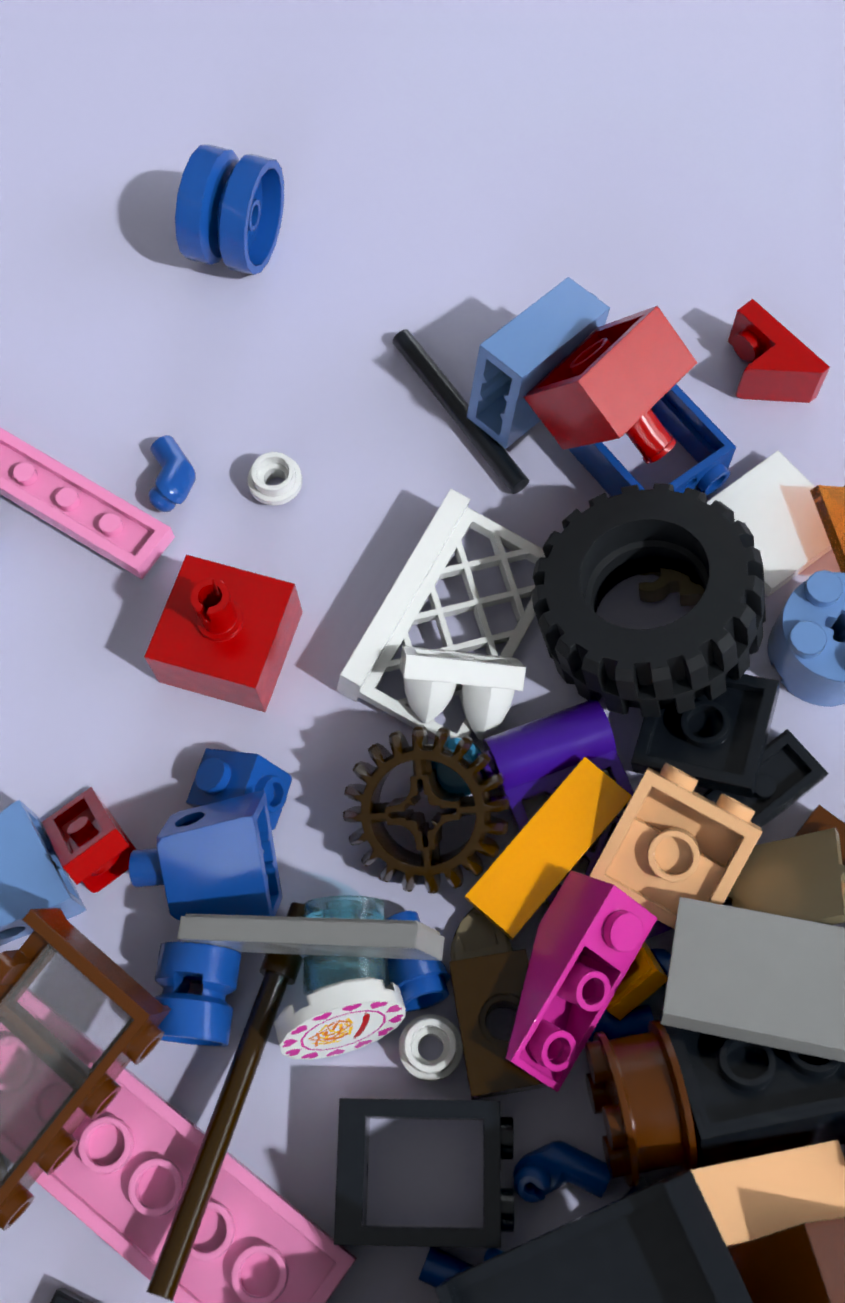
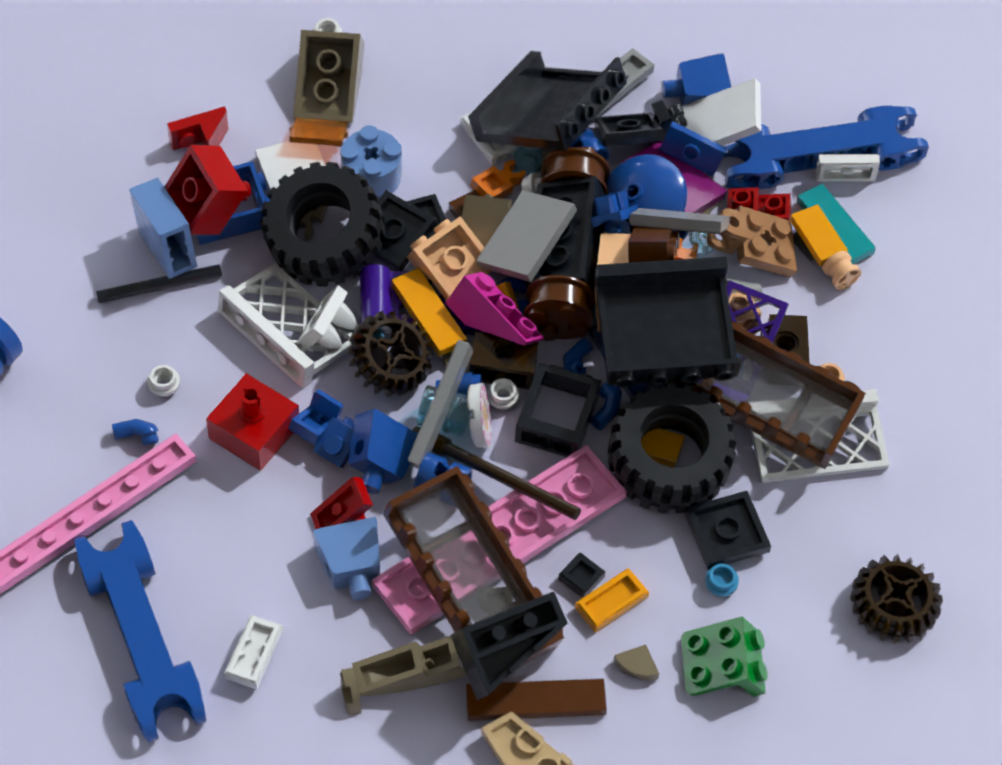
camera: 80 degrees left, 10 degrees down
(263, 729) = (314, 419): none -> blue bracket

